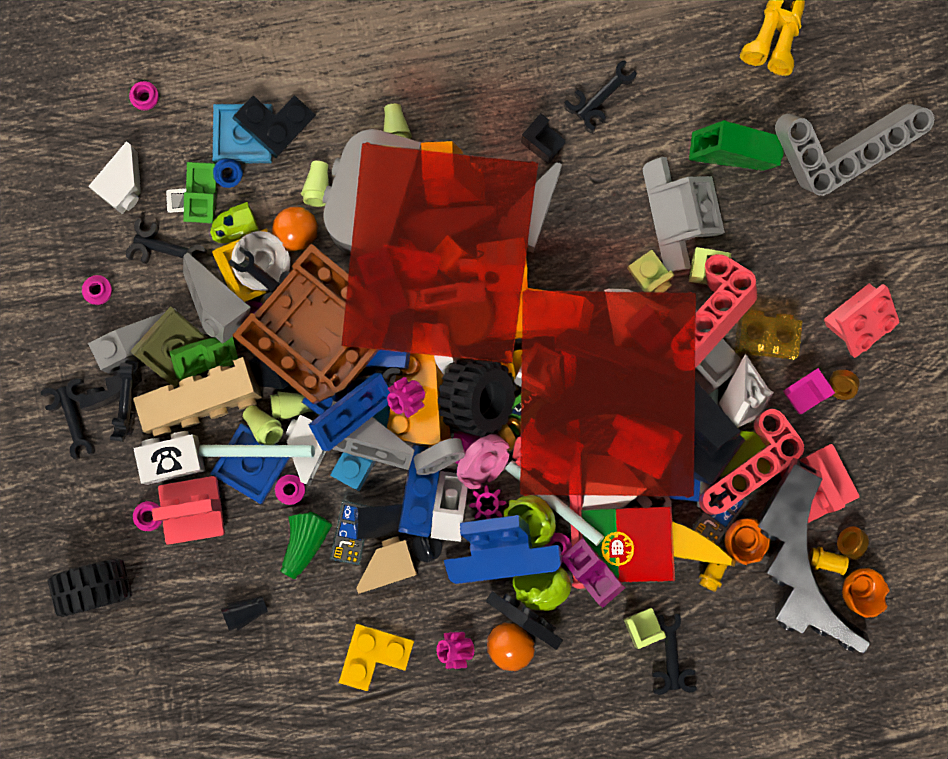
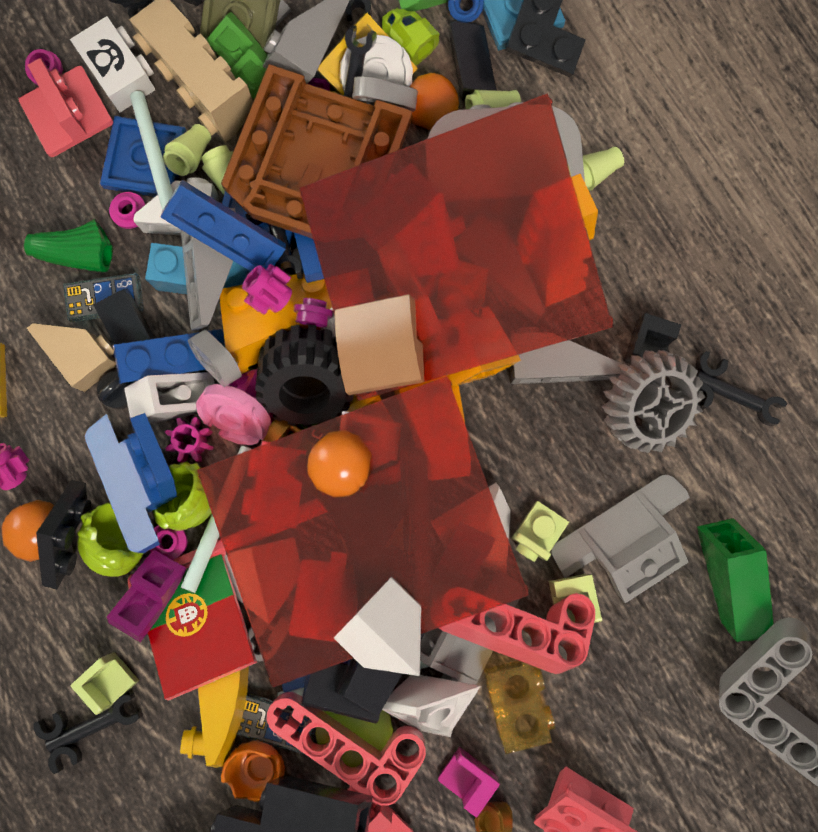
camera: 65 degrees right, 0 degrees up
(273, 185) = (471, 58): none -> black slope
(285, 259) = (369, 89): none -> light grey beam
(436, 370) = (313, 312): none -> magenta plate
(481, 330) = (379, 345): none -> medium nougat slope
(556, 388) = (339, 463): none -> orange hair
(581, 159) = (663, 409): none -> light grey gear
(684, 400) = (386, 631): none -> white slope

